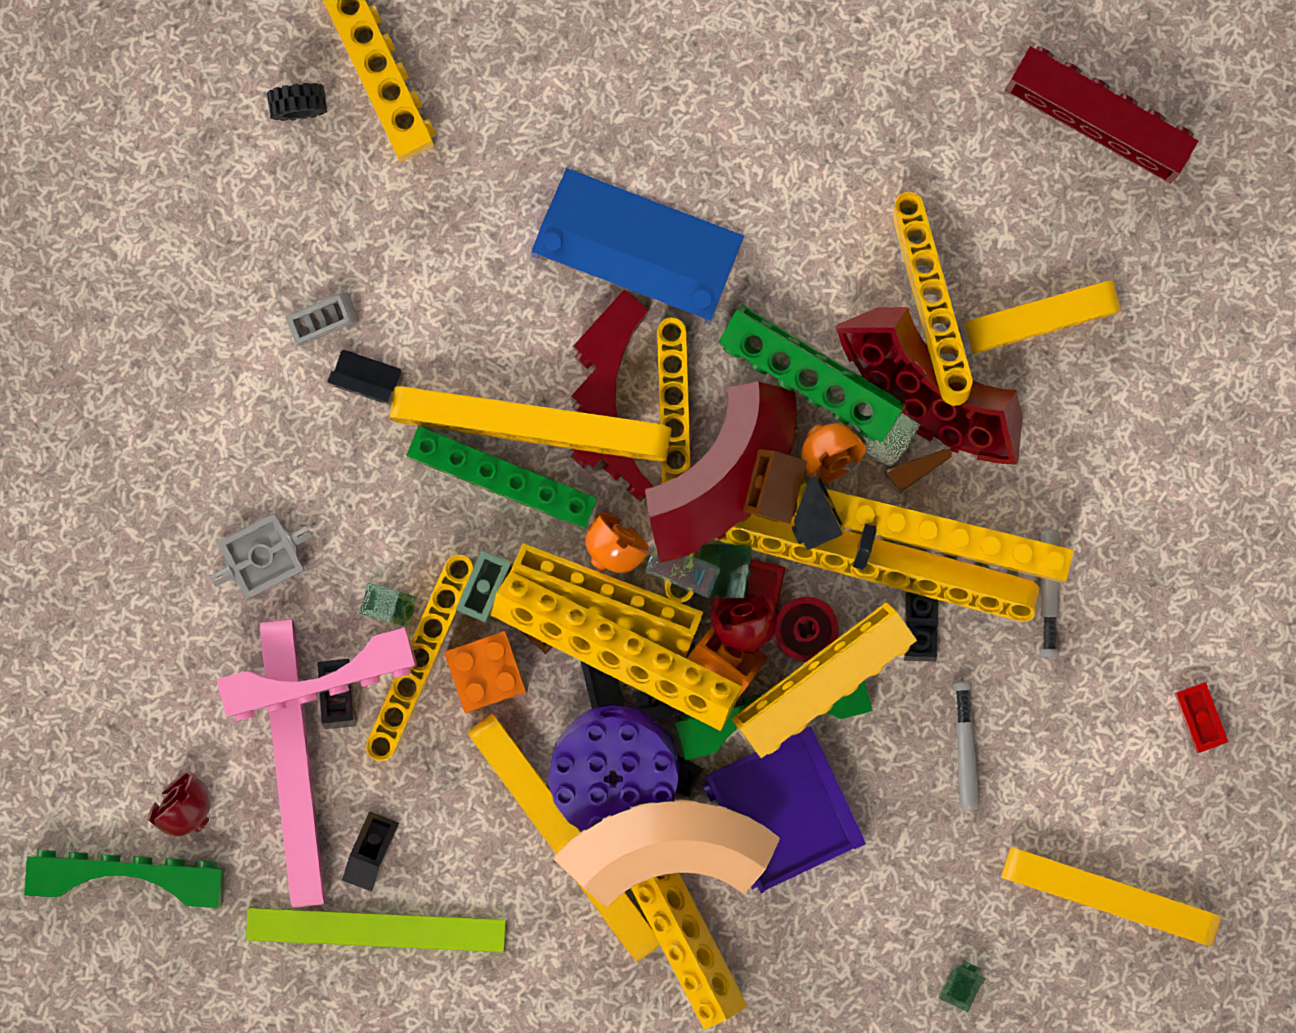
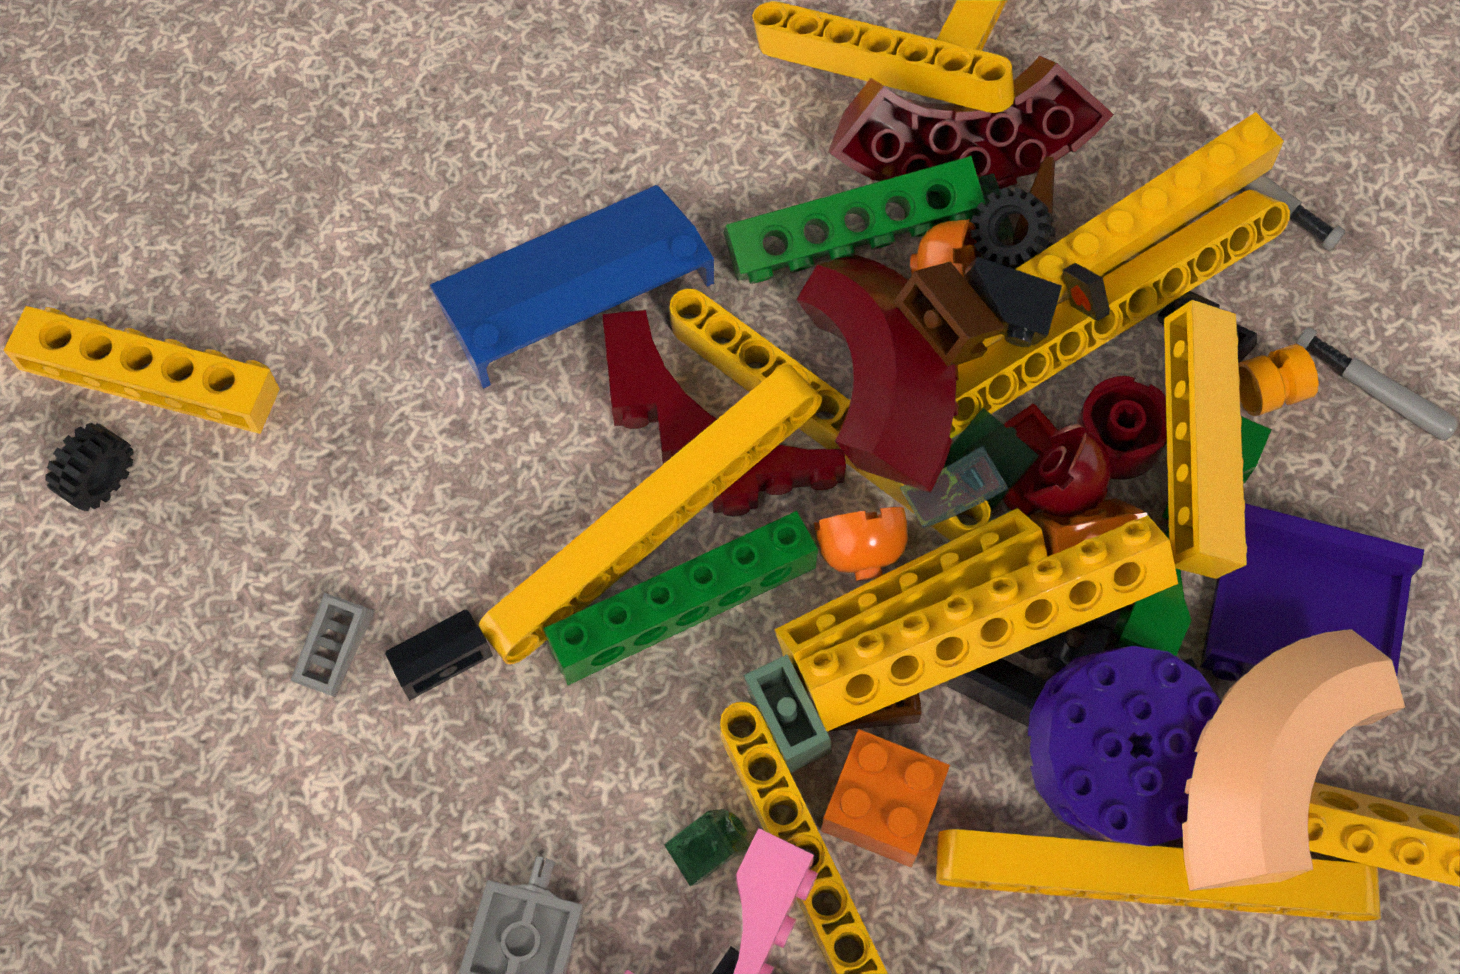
camera: 45 degrees left, 20 degrees down
(860, 471) = (995, 211): none -> black tyre
(913, 689) = (1280, 377): none -> light orange wheel

